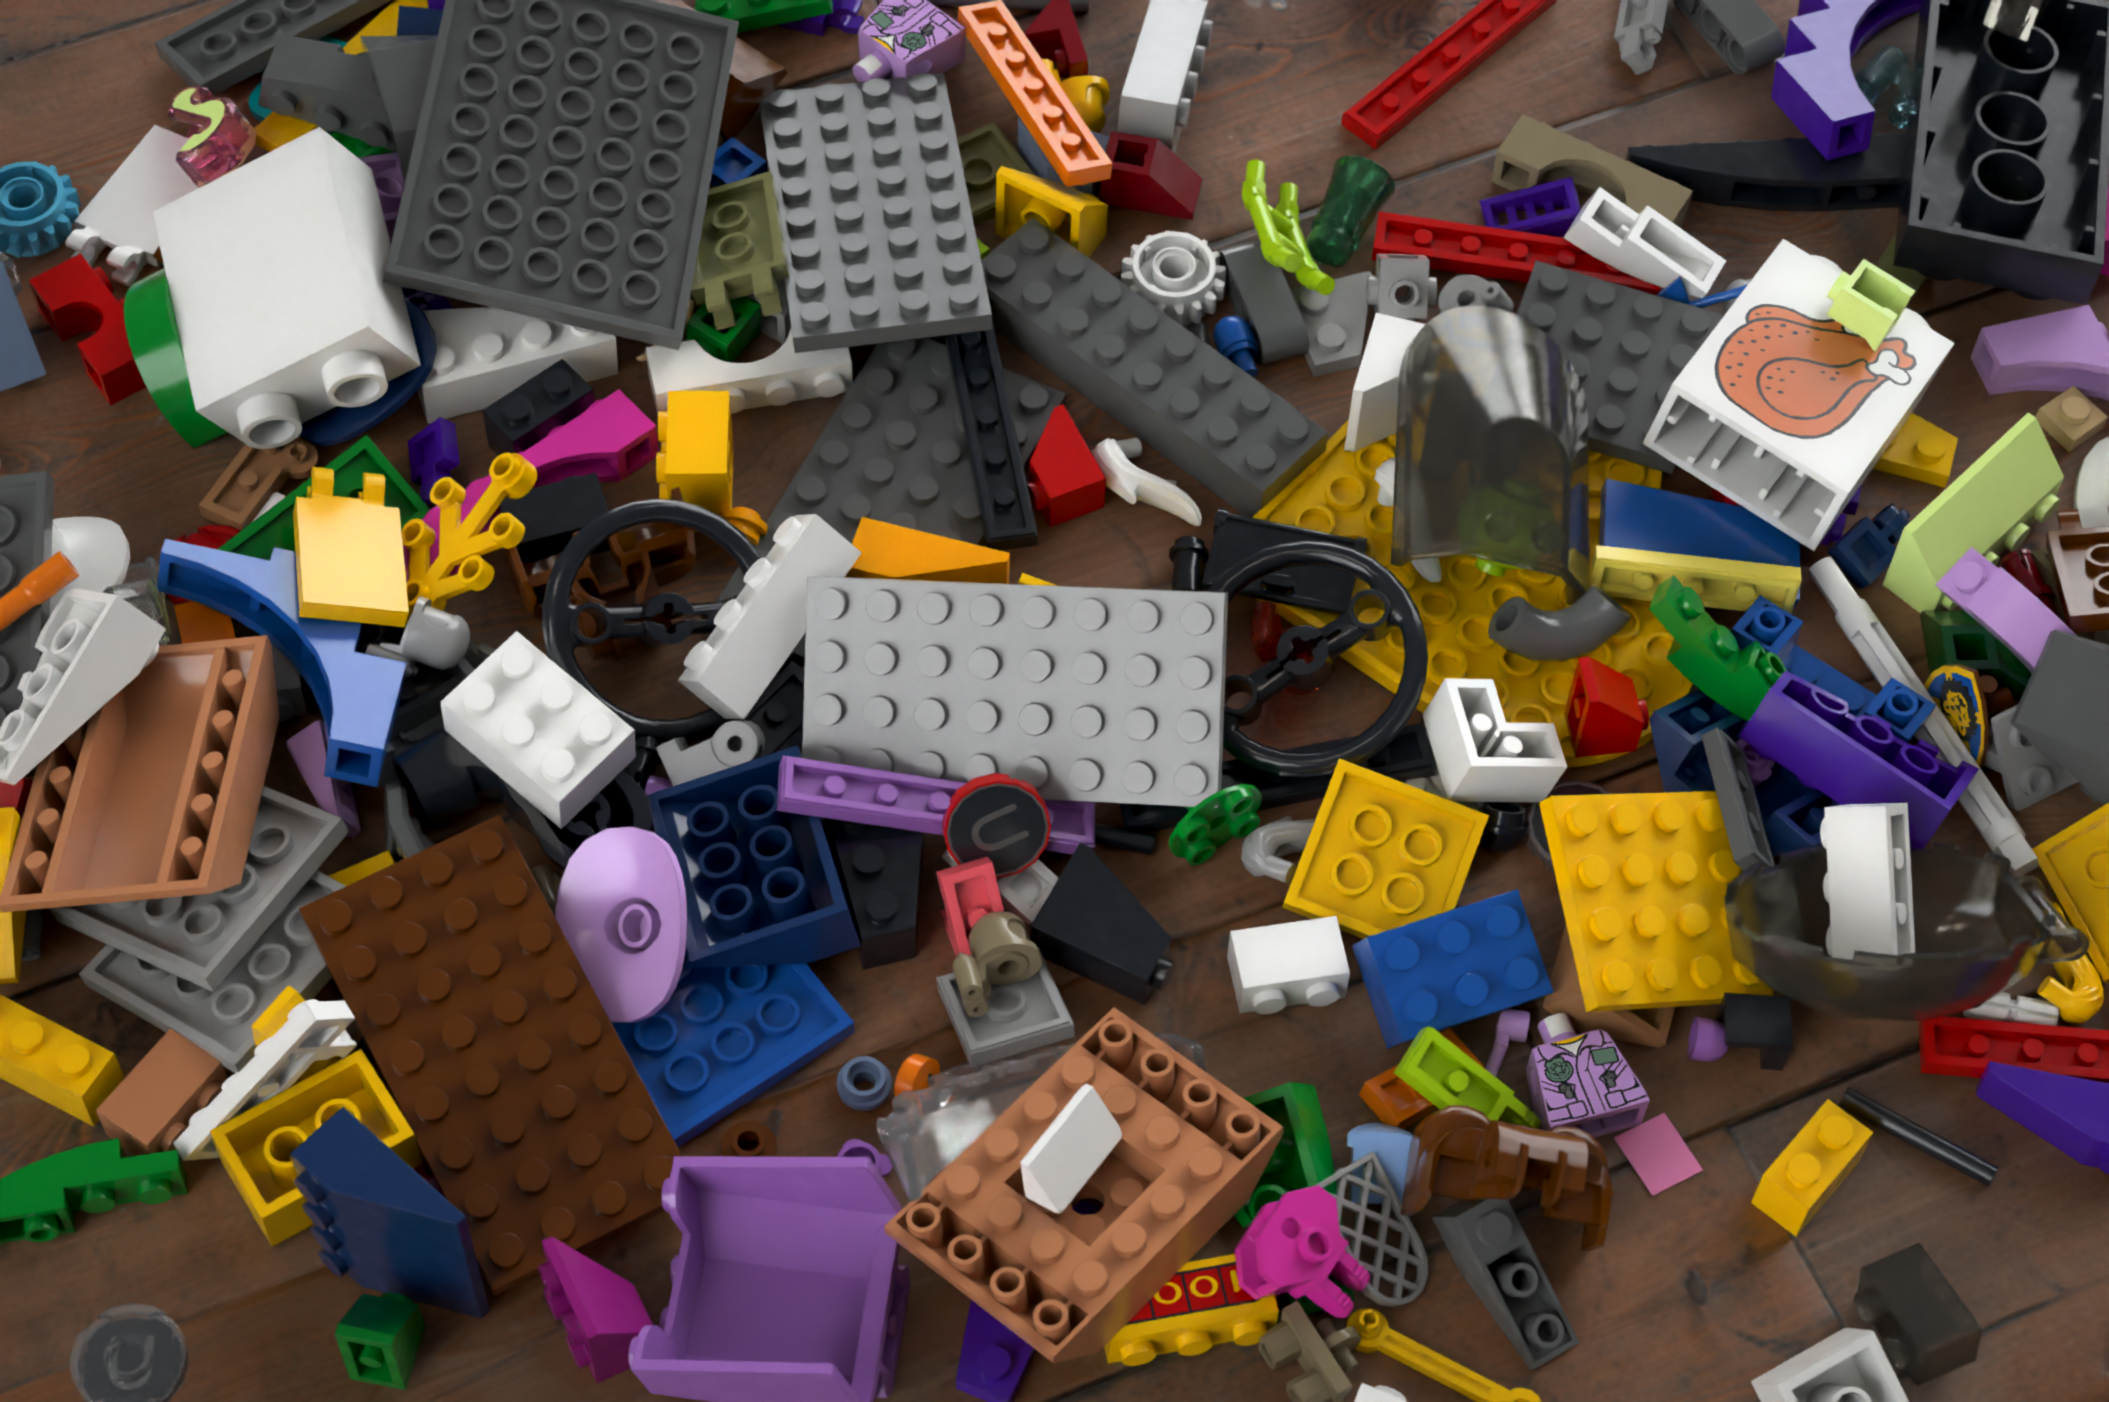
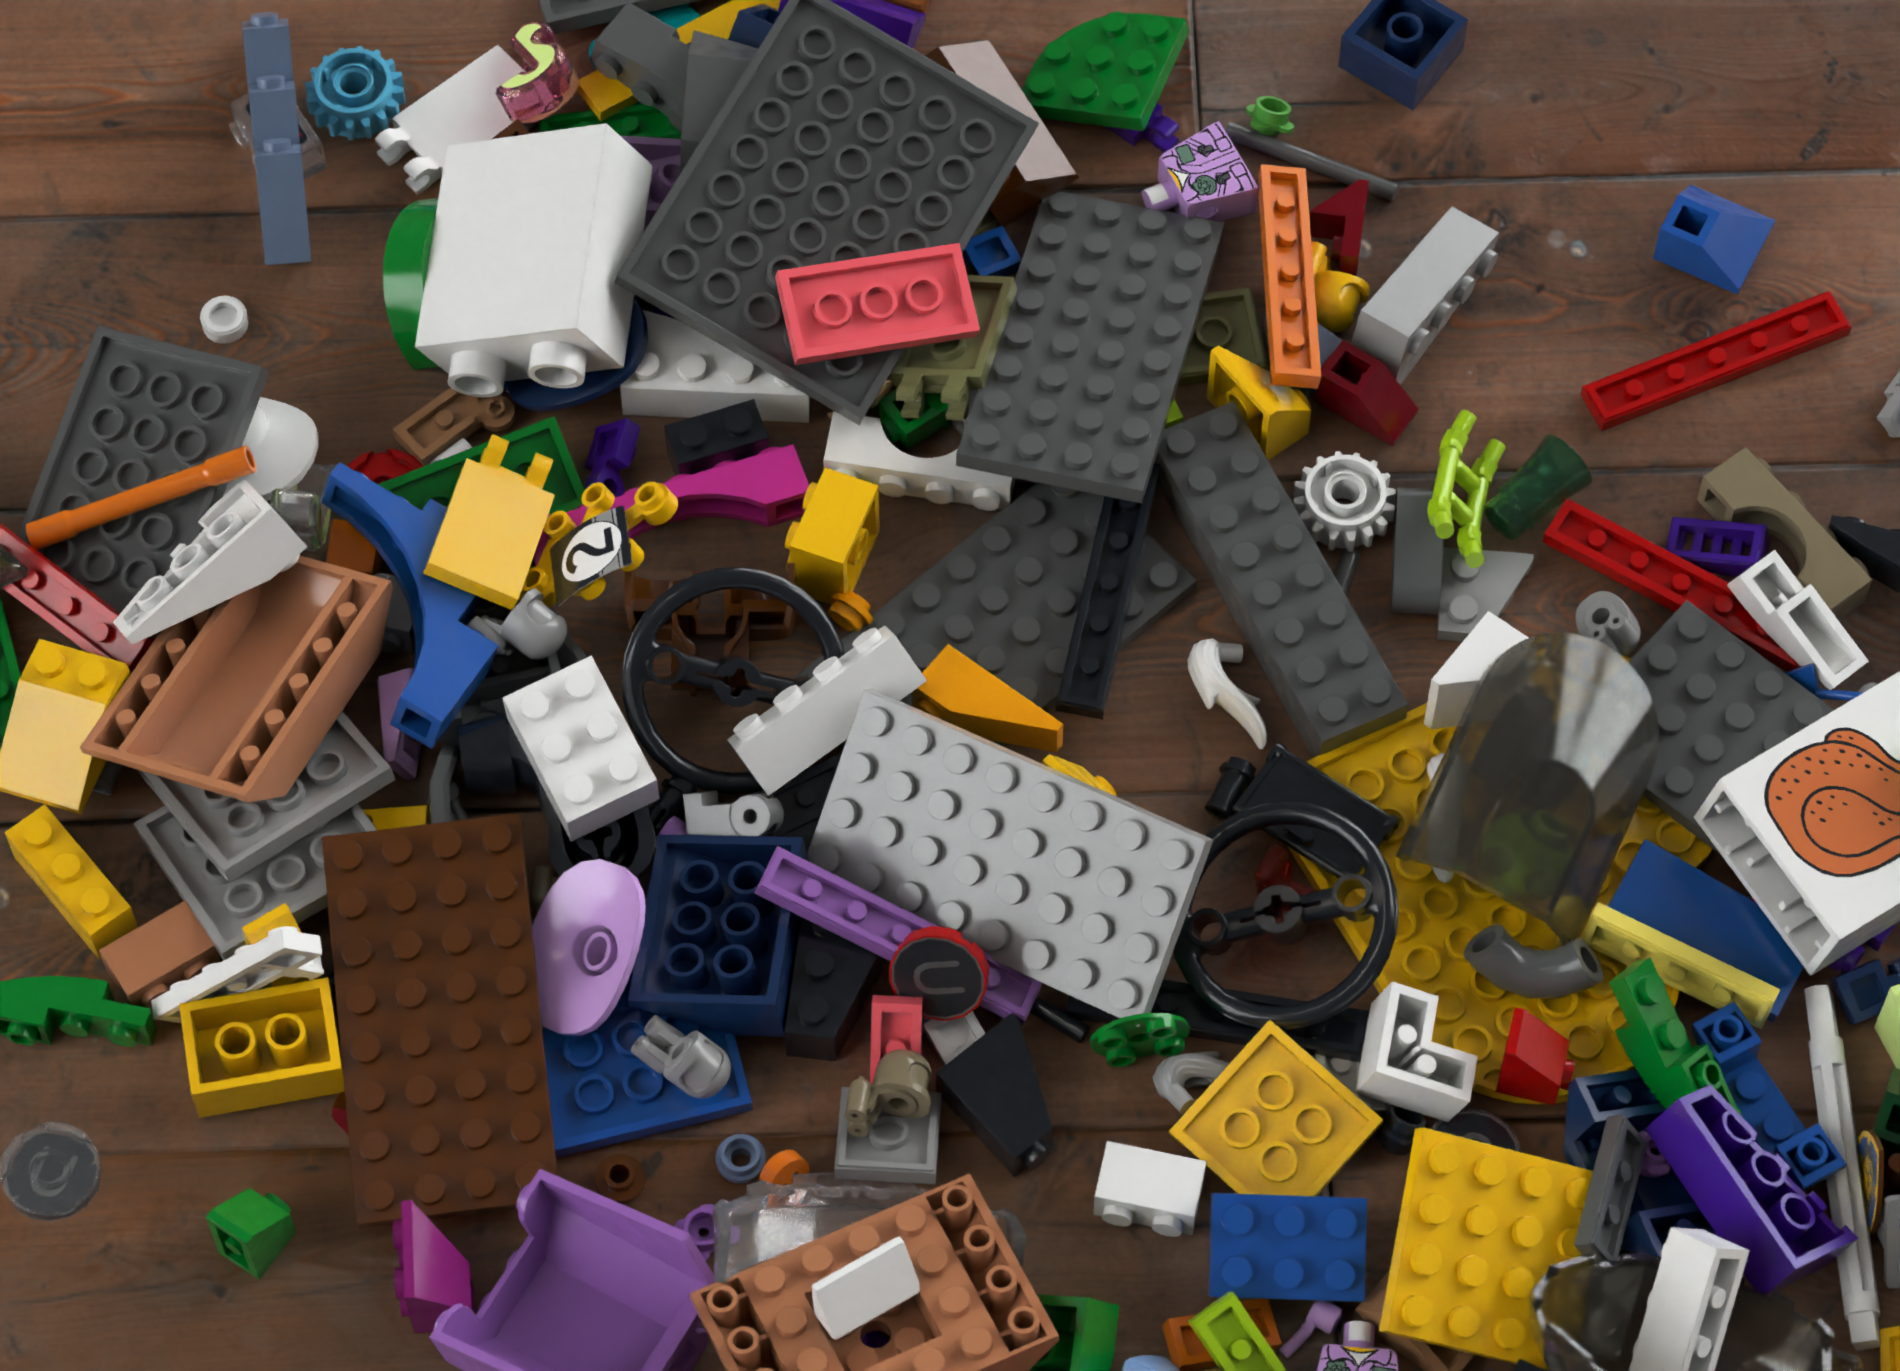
camera: 25 degrees right, 5 degrees up
(81, 300) = (366, 198): red arch -> none
(385, 1220) = (277, 1133): dark blue slope -> none
(464, 543) = (590, 552): none -> sticker
(555, 513) = (690, 544): black hinge -> none
(654, 225) = (877, 303): none -> coral plate
(777, 1001) = (686, 1061): none -> light grey piece
(1064, 473) = (1157, 656): red slope -> none
(1237, 342) = (1374, 586): blue cylinder -> none
(1396, 271) = (1550, 583): light grey brick -> none

